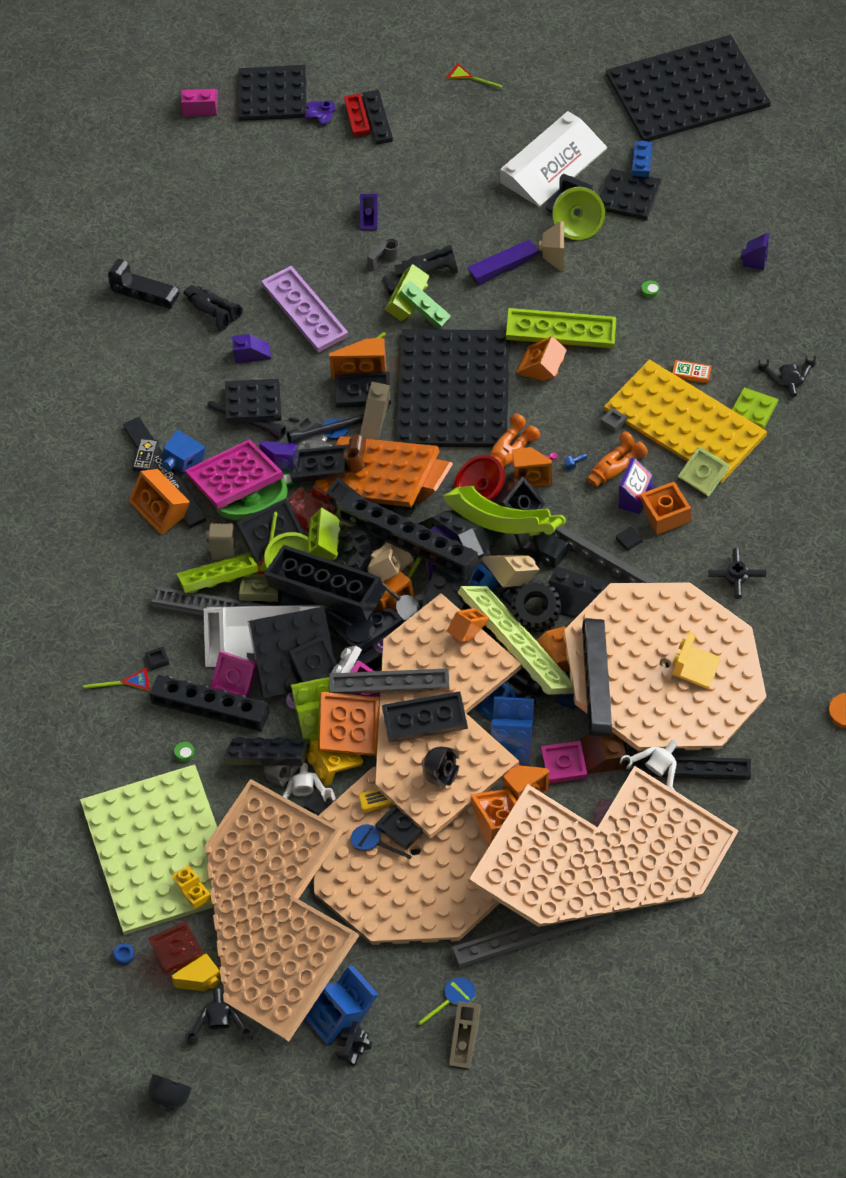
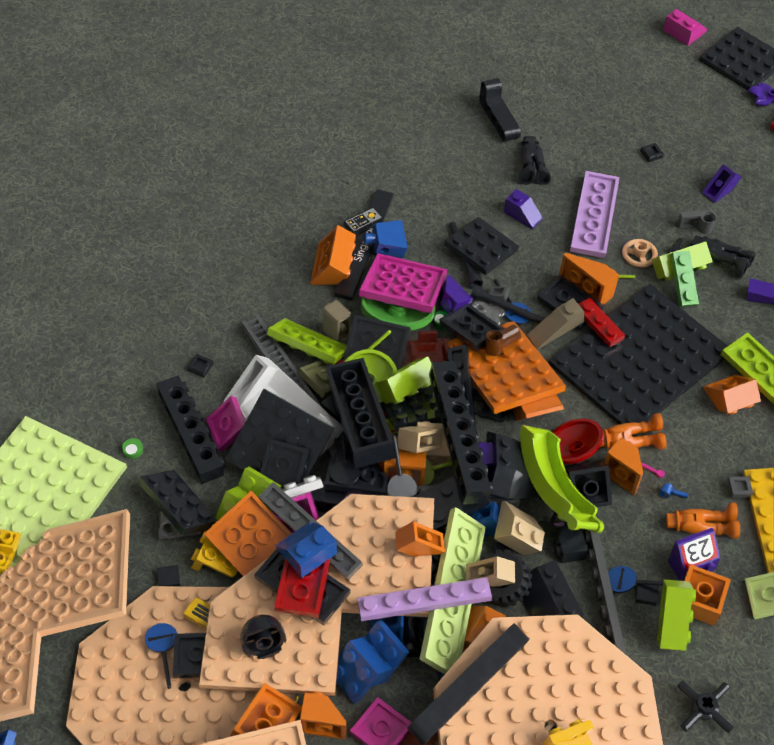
camera: 40 degrees right, 0 degrees up
(137, 680) = (168, 368): piece -> none
(290, 226) = (652, 152): none -> black tile
(303, 784) = (172, 551): white piece -> none
(368, 310) = (640, 249): none -> light nougat piece
(405, 385) = (601, 323): none -> red plate
(408, 686) = (308, 548): none -> blue slope
(428, 712) = (299, 594): none -> red plate
(510, 656) = (424, 599): none -> lavender plate
(529, 606) = (496, 569): none -> tan slope
(609, 541) = (624, 579): none -> blue piece
(665, 532) = (675, 615): none -> lime brick

